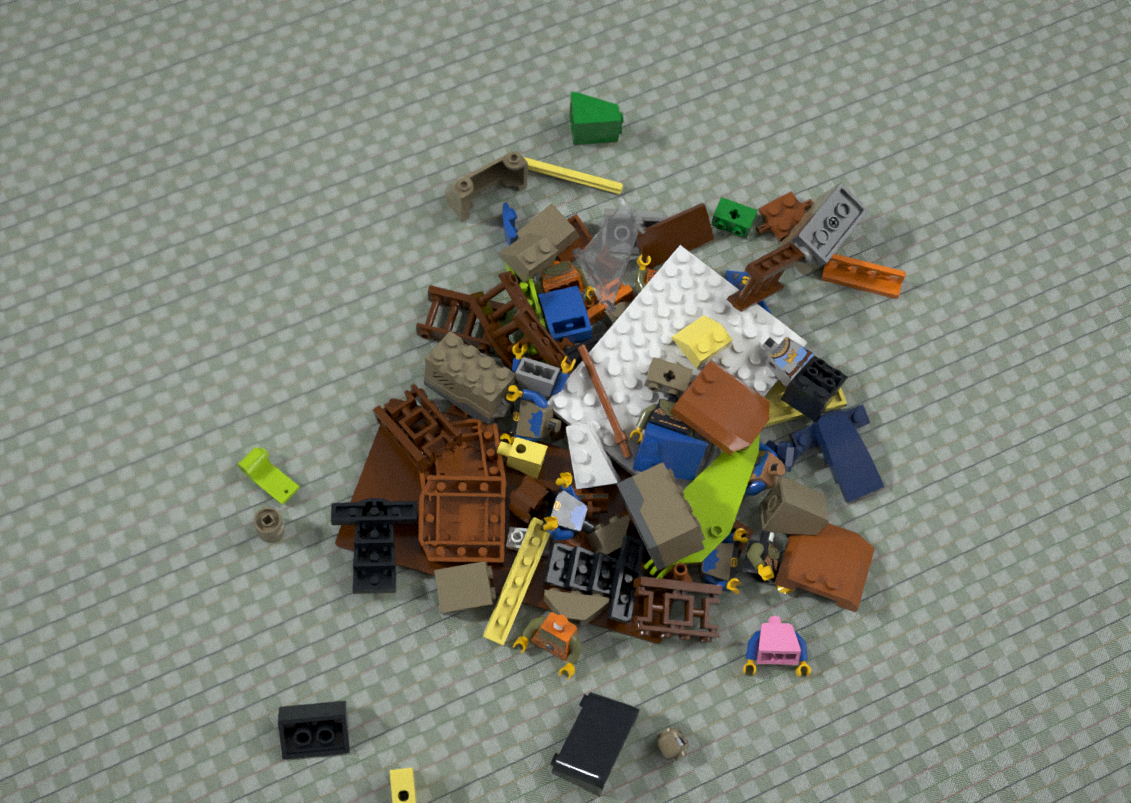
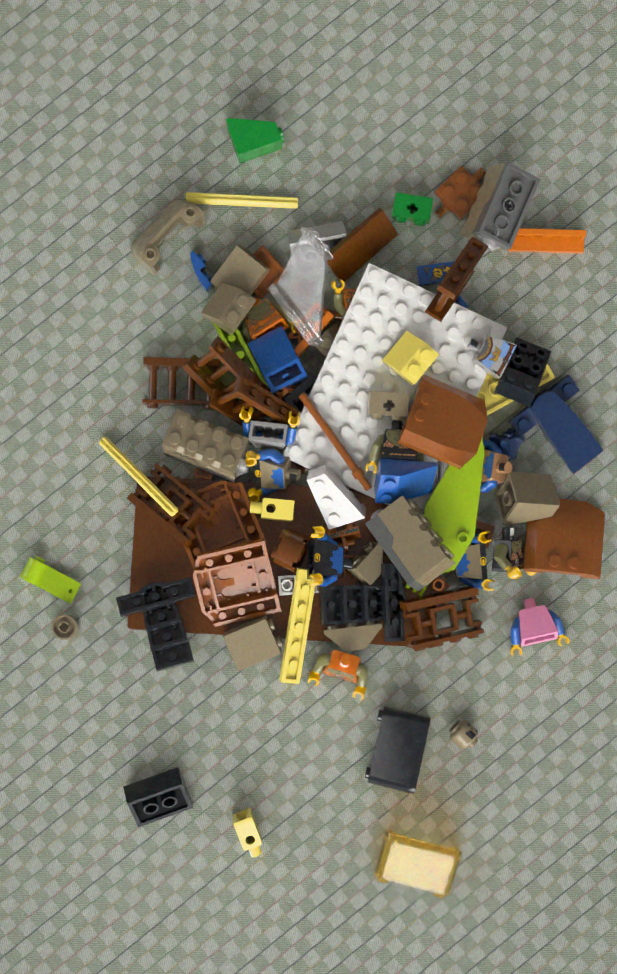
camera: 10 degrees left, 20 degrees up
(392, 393) = (139, 477): none -> light yellow axle

